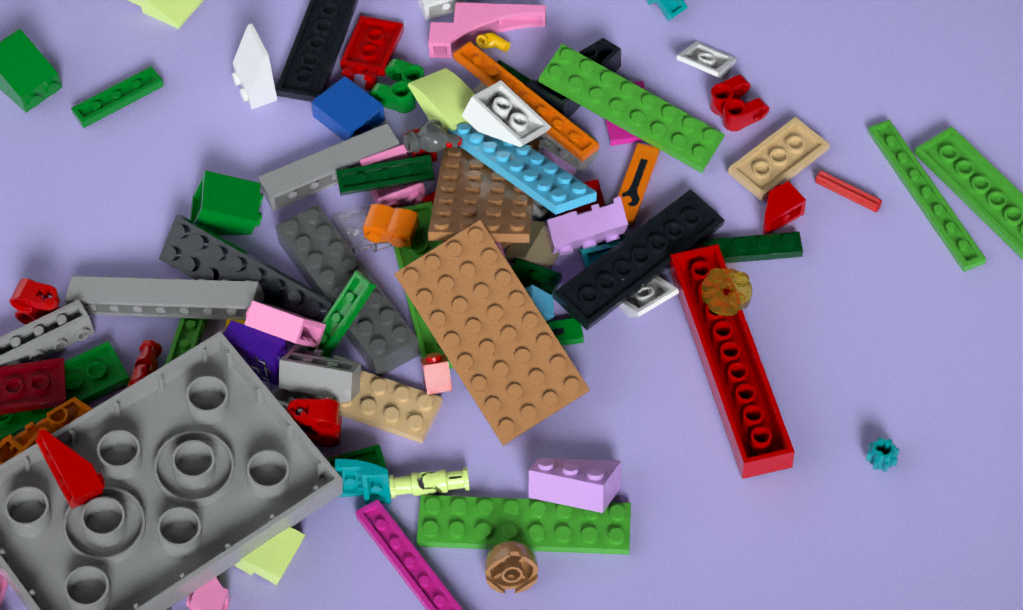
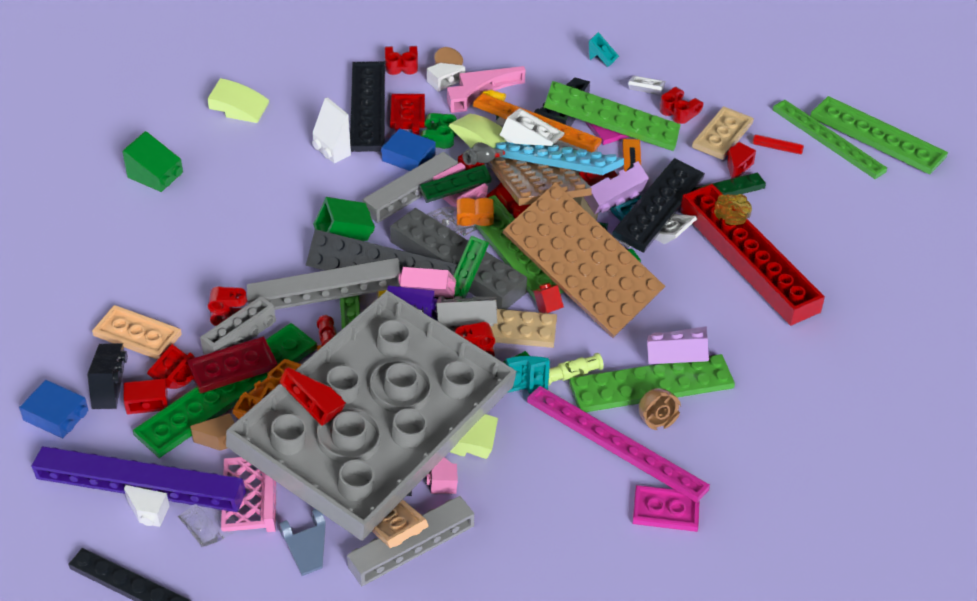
camera: 20 degrees left, 10 degrees down
(117, 97) = (230, 169): green plate -> none
(882, 454) = (878, 291): teal gear -> none

